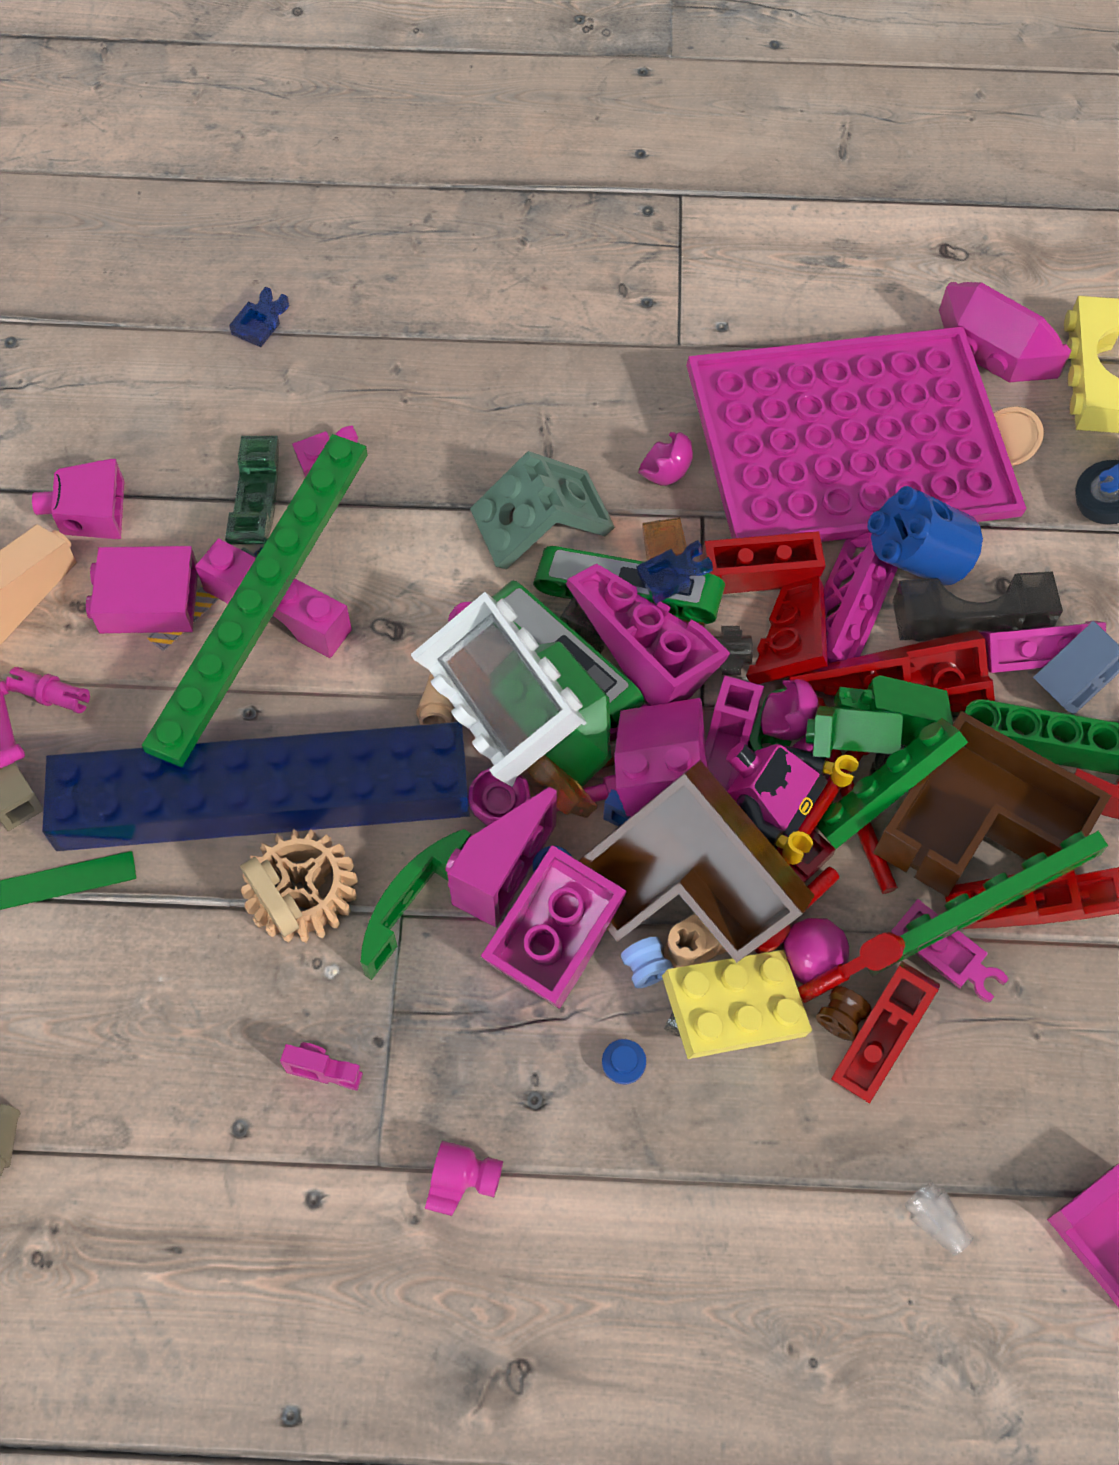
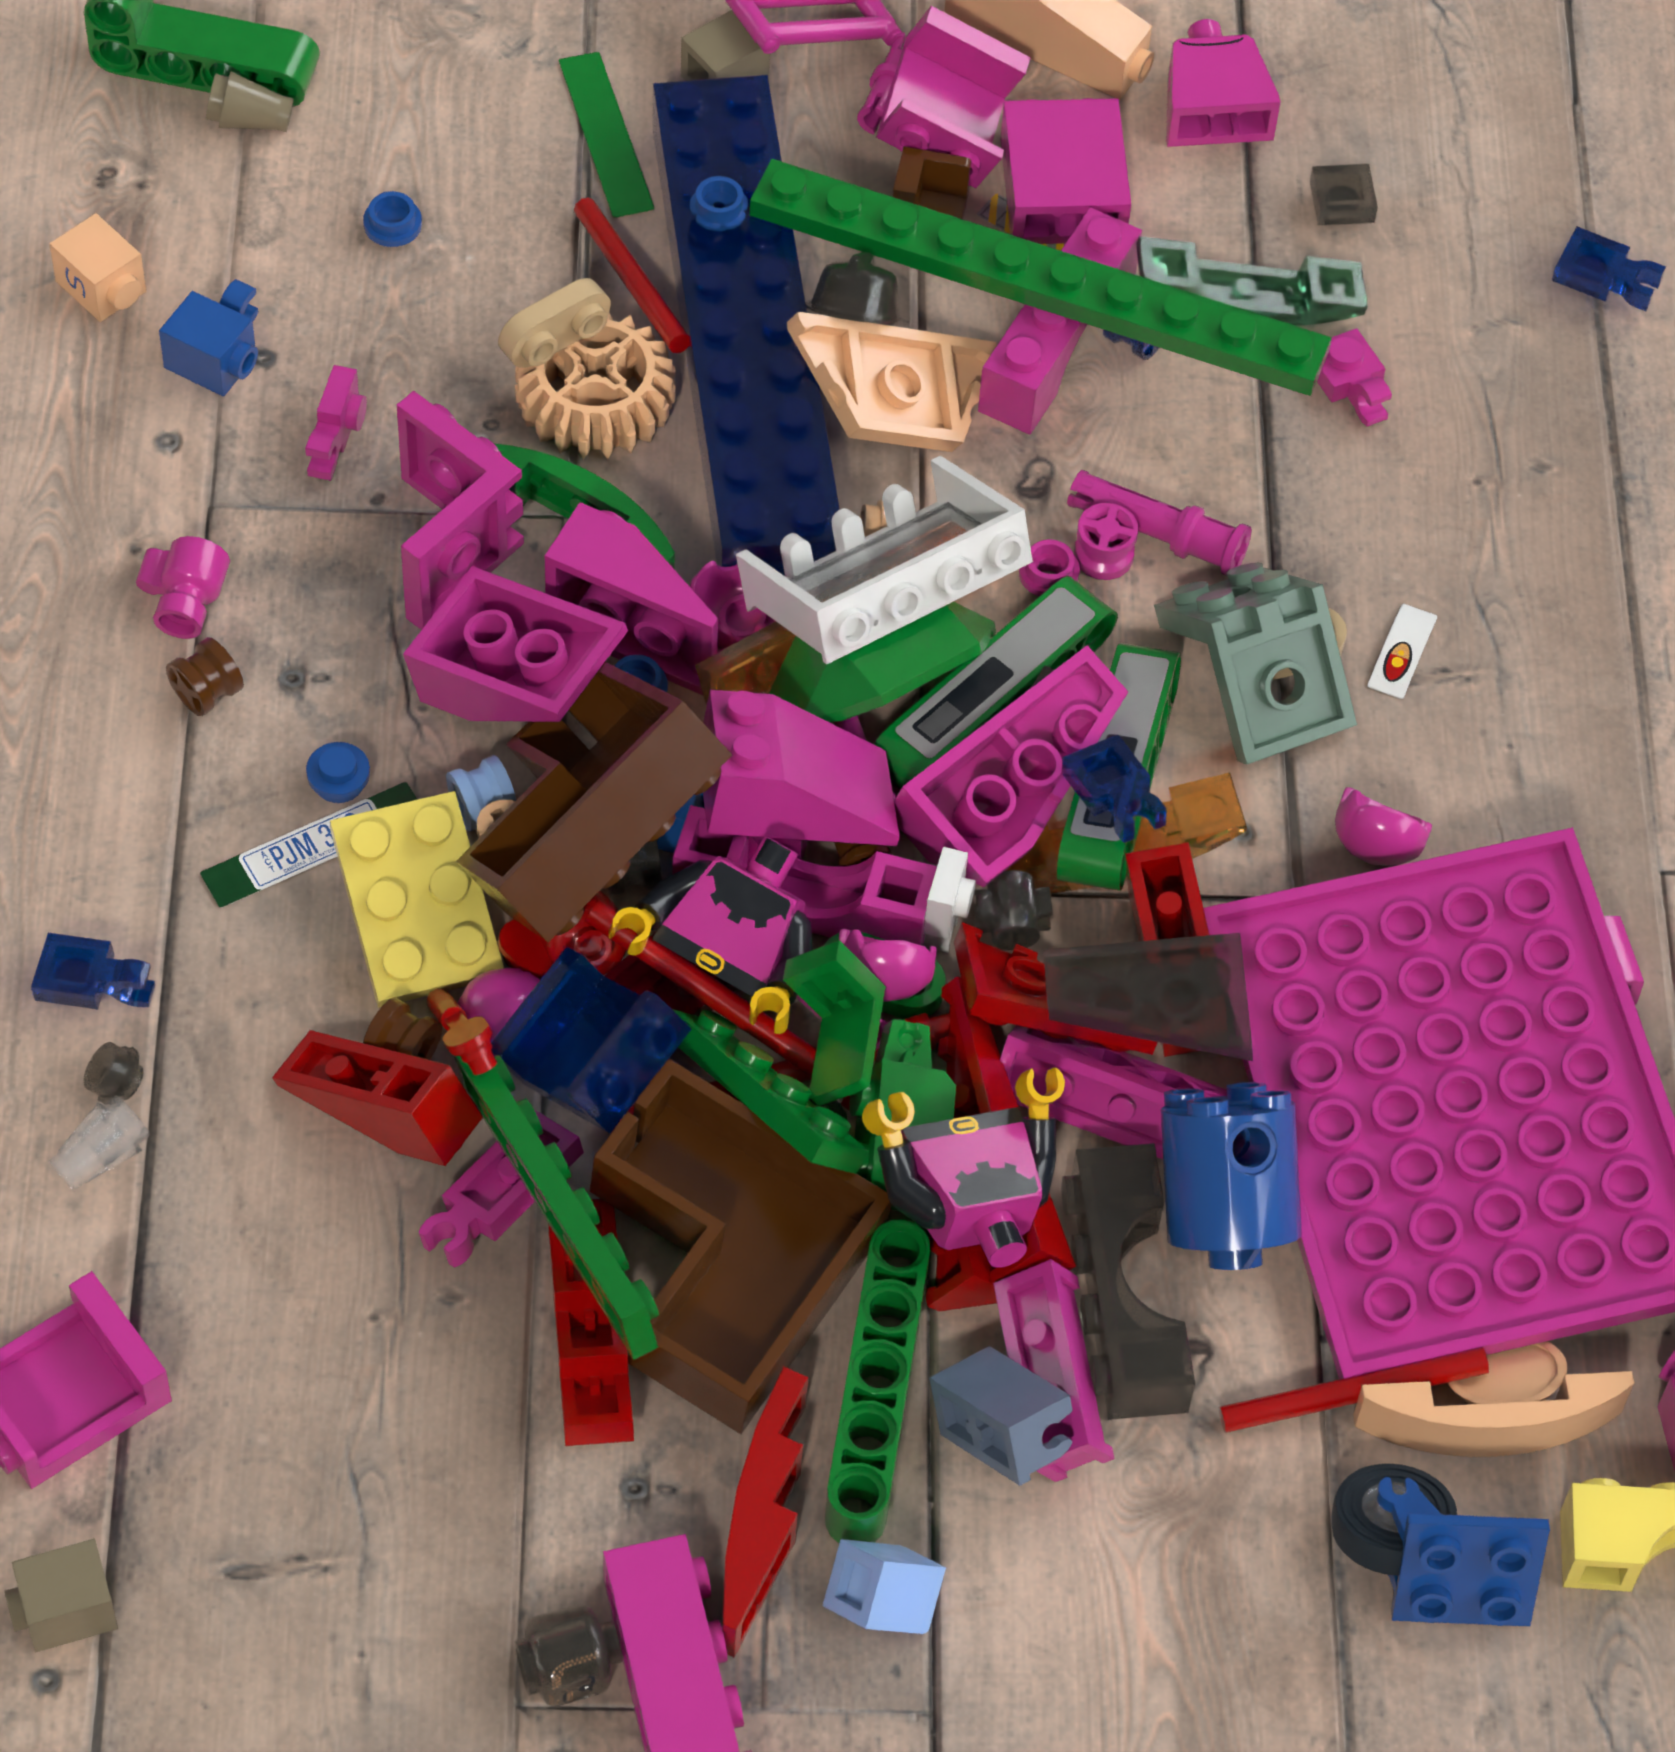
camera: 85 degrees right, 5 degrees down
(71, 655) = (951, 91): none -> dark pink panel
(125, 1030) = (392, 219): none -> blue plate
(150, 673) = (933, 180): none -> reddish brown panel
(150, 1254) = (98, 267): none -> light nougat brick
(171, 774) = (719, 204): none -> blue plate
(183, 441) = (1343, 194): none -> clear smoke plate
(203, 859) = (632, 275): none -> red bar
(232, 1161) = (212, 339): none -> blue brick
(261, 705) = (858, 292): none -> clear smoke piece
(322, 692) = (894, 379): none -> light nougat wing
(400, 956) = (471, 487): none -> dark pink bracket
(443, 544) = (1185, 530): none -> dark pink pin
(446, 577) = (1095, 530): none -> dark pink wheel
(523, 443) = (1402, 651): none -> white sticker
(547, 1156) = (204, 676): none -> reddish brown wheel
(677, 1083) = (289, 853): none -> sticker
(737, 667) = (948, 899): none -> white plate
(800, 1238) = (82, 969): none -> clear blue plate
(816, 559) = (1156, 990): none -> clear smoke wing
(867, 879) = (588, 1040): none -> clear blue panel
(883, 1219) = (113, 1072): none -> clear smoke plate
(951, 658) = (974, 1173): none -> torso
(1031, 514) = (1347, 1390): none -> red bar
(1048, 456) = (1408, 1417): none -> light nougat slope

